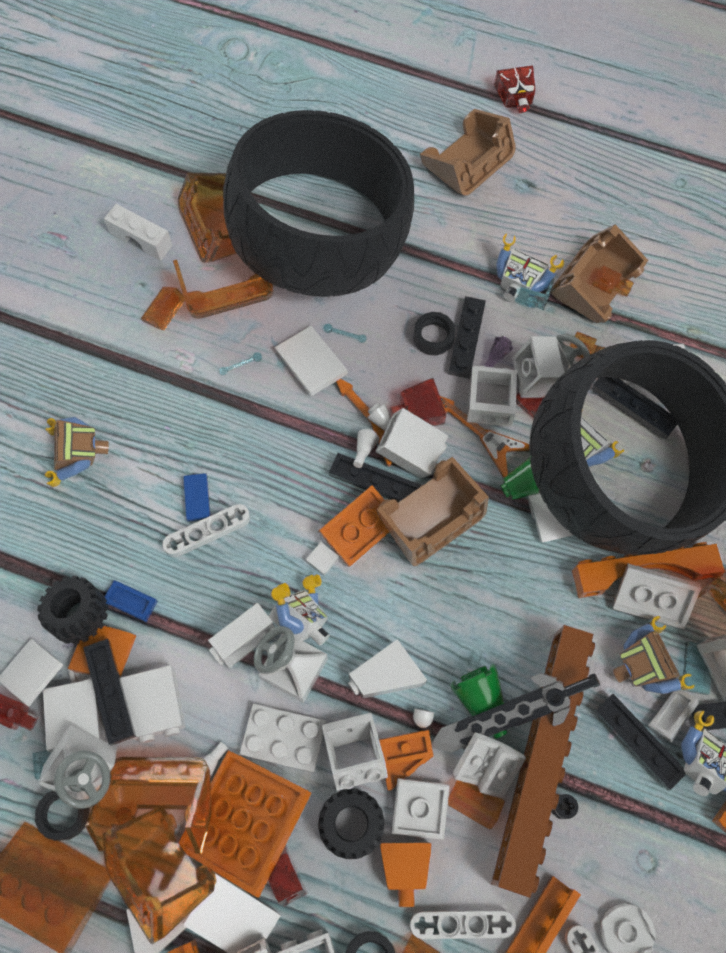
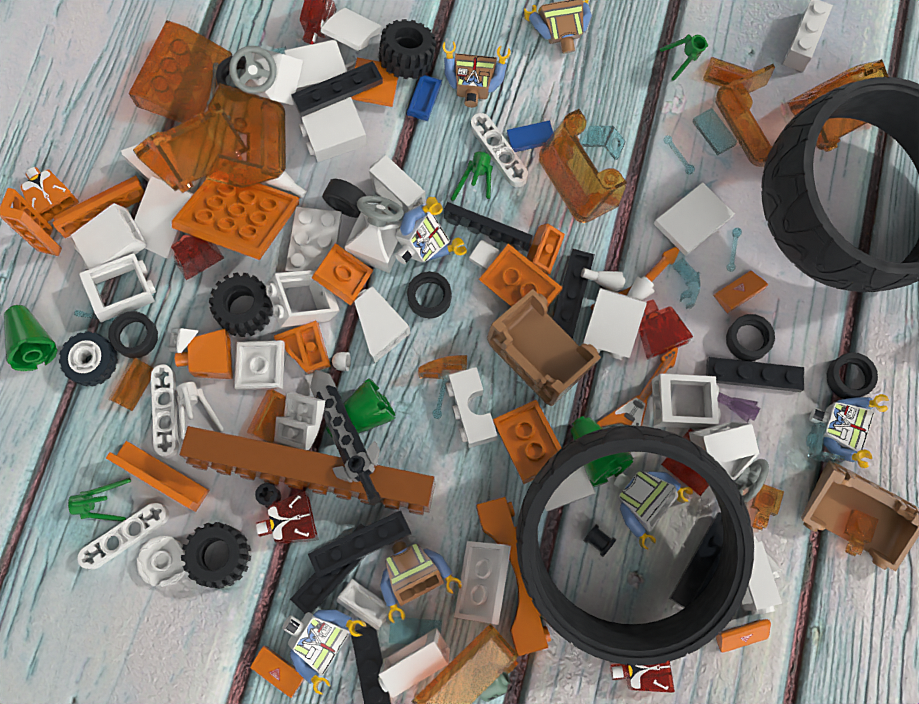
camera: 85 degrees right, 5 degrees up
(87, 851) = (213, 85): none -> clear light blue hinge
(116, 544) = (474, 74): none -> torso
(138, 327) = (693, 48): none -> green plant
(212, 428) = (603, 137): none -> clear light blue bracket
(222, 329) = (714, 131): none -> clear light blue tile
(223, 550) = (479, 166): none -> green plant
(242, 694) = (343, 197): none -> black tyre
(249, 457) = (575, 176): none -> clear orange windscreen
(299, 543) = (480, 224): none -> black plate
(321, 500) = (545, 247): none -> orange slope
(330, 705) = (342, 274): none -> orange plate
(372, 603) = (429, 277): none -> black tyre
(374, 371) = (692, 281): none -> clear light blue piece
(387, 334) = (740, 291): none -> orange slope
(387, 896) = (180, 339): none -> white slope
(440, 617) = (435, 368): none -> clear orange slope
(449, 894) = (188, 396): none -> white plant
(464, 594) = (476, 428): none -> white arch
(476, 247) = (867, 367): none -> black tyre
(484, 624) = (437, 414): none -> clear light blue hinge
(522, 536) = (527, 439): none -> orange plate
(592, 784) = (290, 520): none -> clear red torso
(616, 487) = (599, 540): none -> black bush
(621, 712) = (359, 544): none -> black plate
(649, 867) = (196, 550): none -> black tyre

